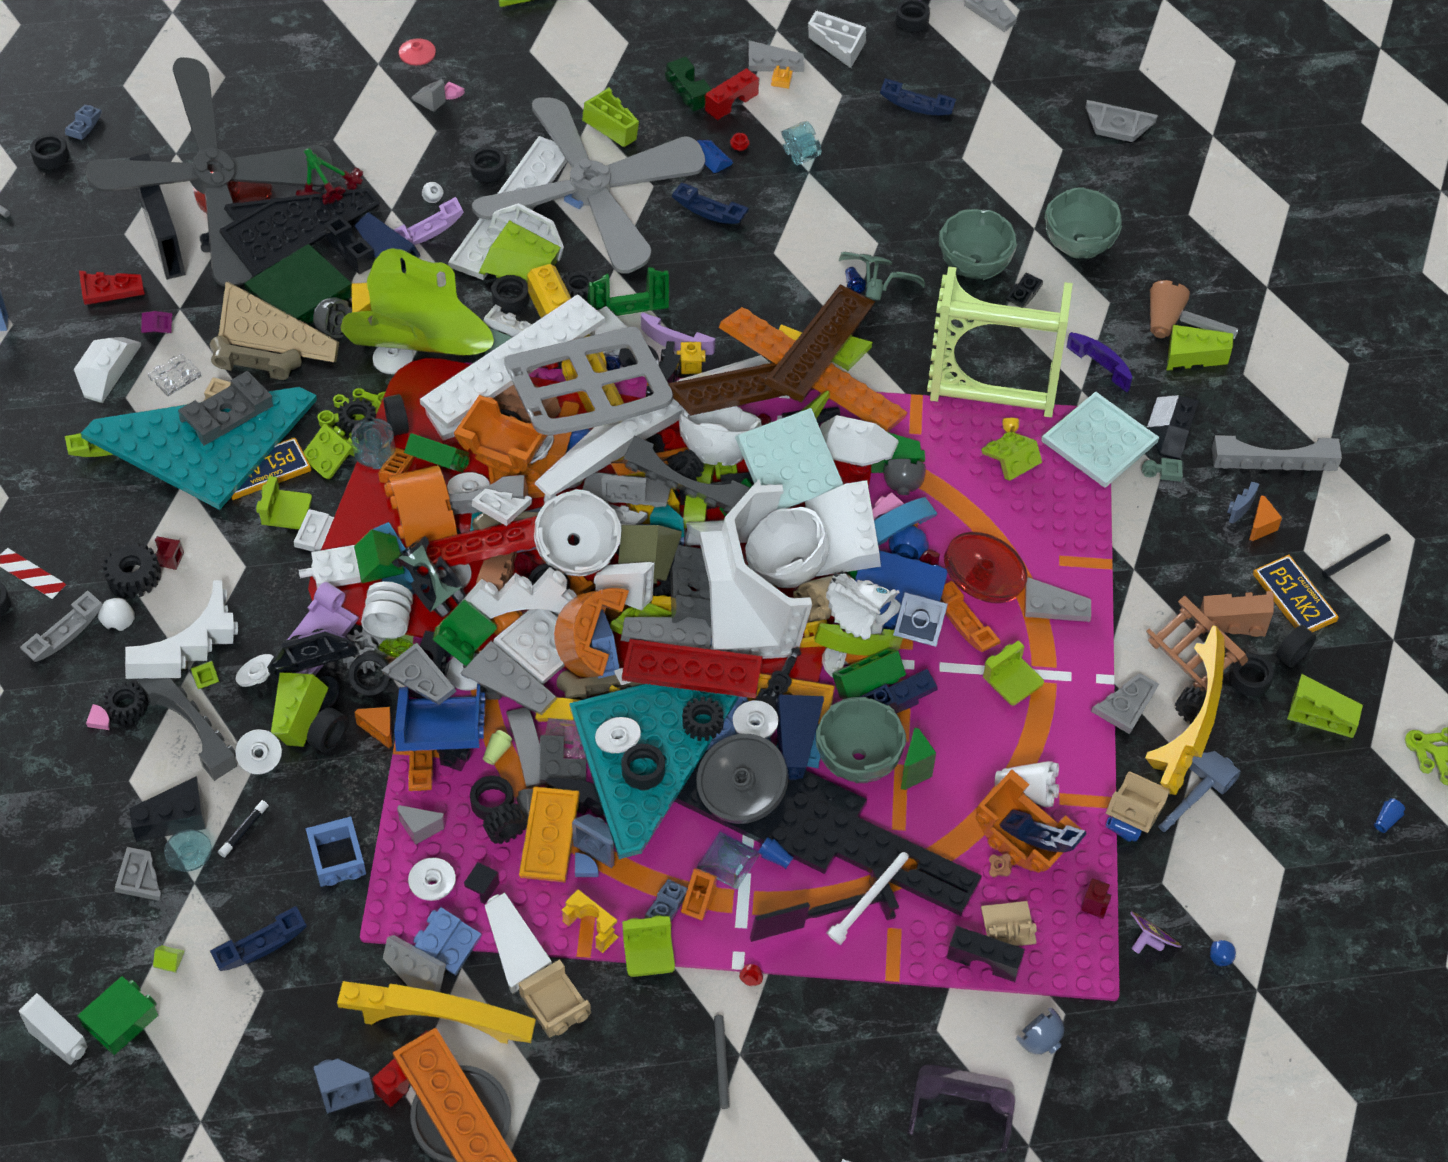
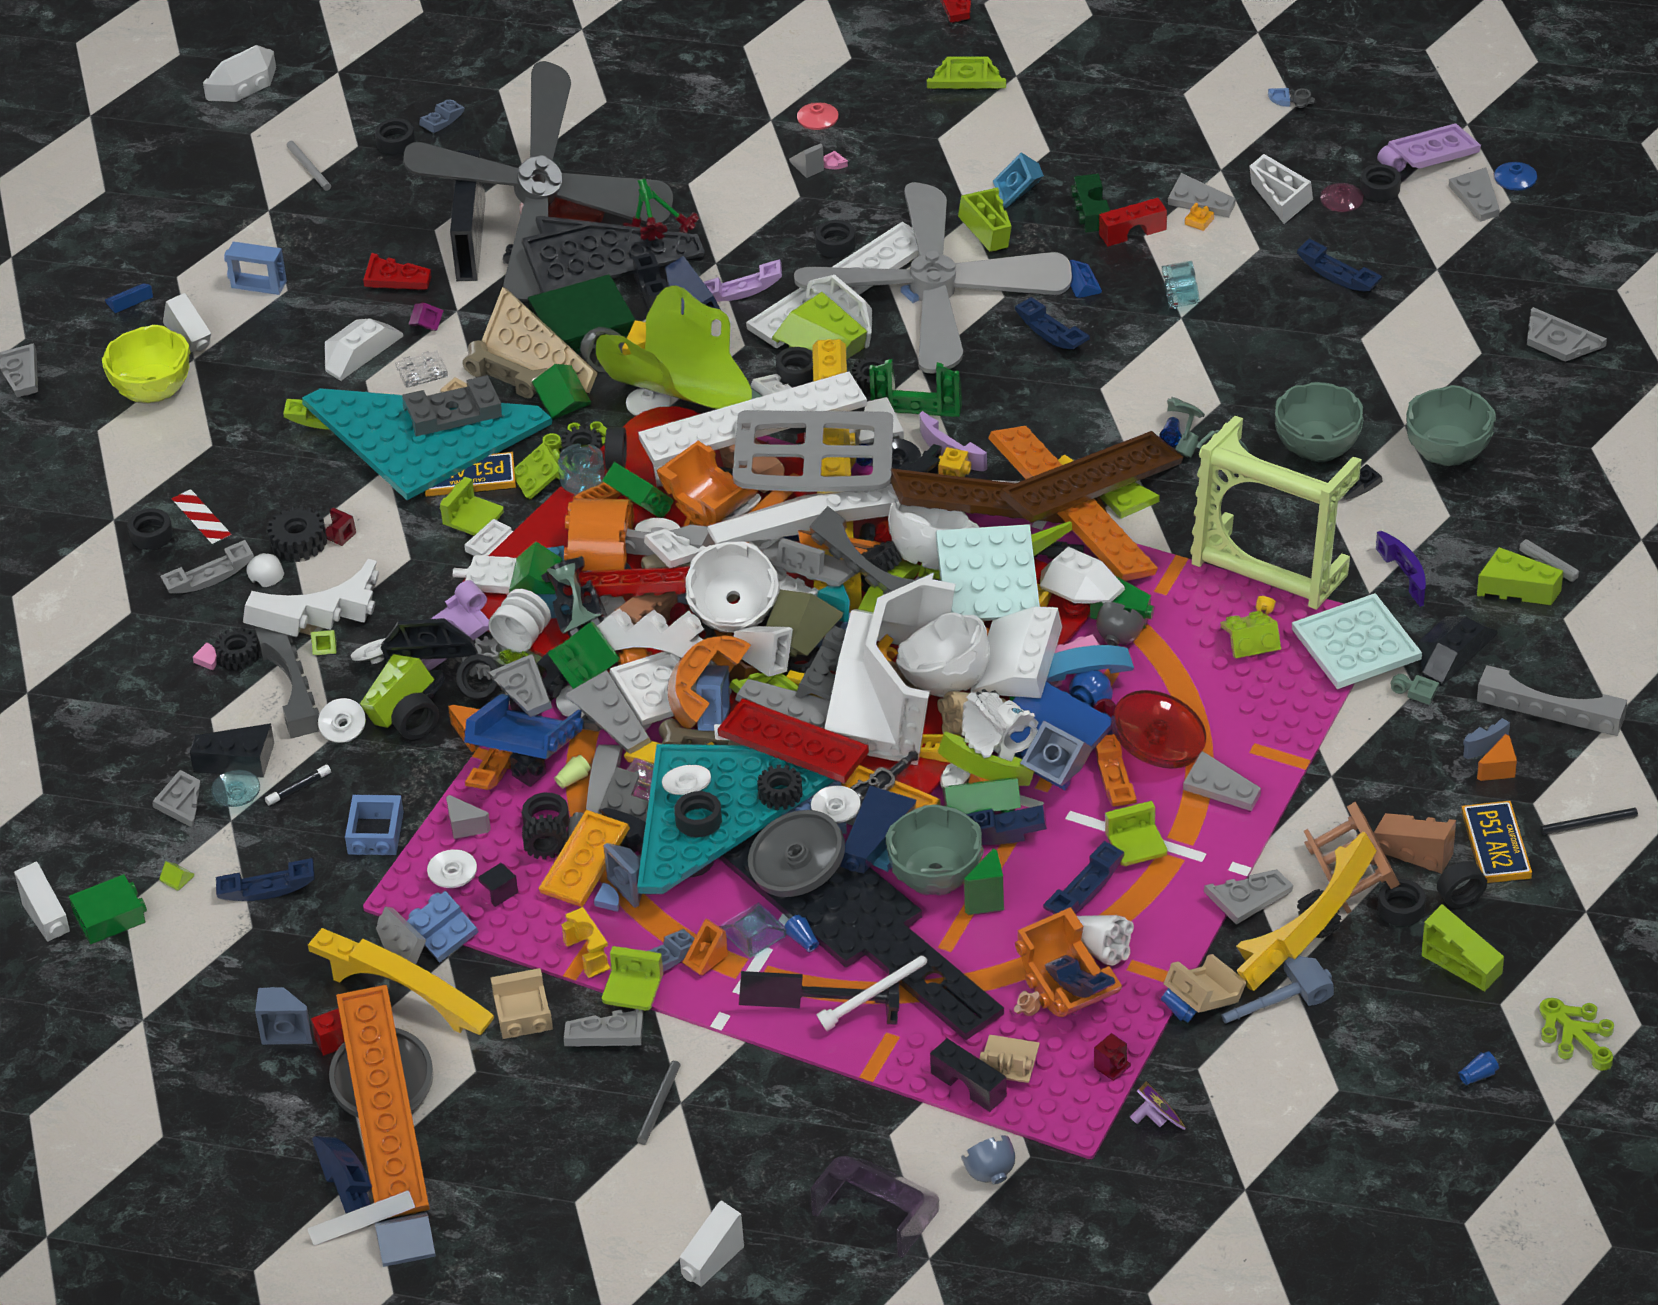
camera: 25 degrees right, 10 degrees down
(313, 367) = (560, 390): none -> green slope
(432, 192) = (763, 253): white piece -> none
(516, 944) = (503, 941): white slope -> none
(617, 74) = (1017, 179): none -> dark azure slope
(647, 1000) = (614, 1030): none -> light grey wing
(739, 141) = (1118, 271): red plate -> none
(751, 975) = (725, 1035): red plate -> none
(885, 34) = (1341, 197): none -> clear pink dish
(992, 731) = (1089, 881): none -> dark blue slope
(1166, 306) = (1505, 528): nougat cone -> none
(1222, 953) = (1223, 1143): blue piece -> none

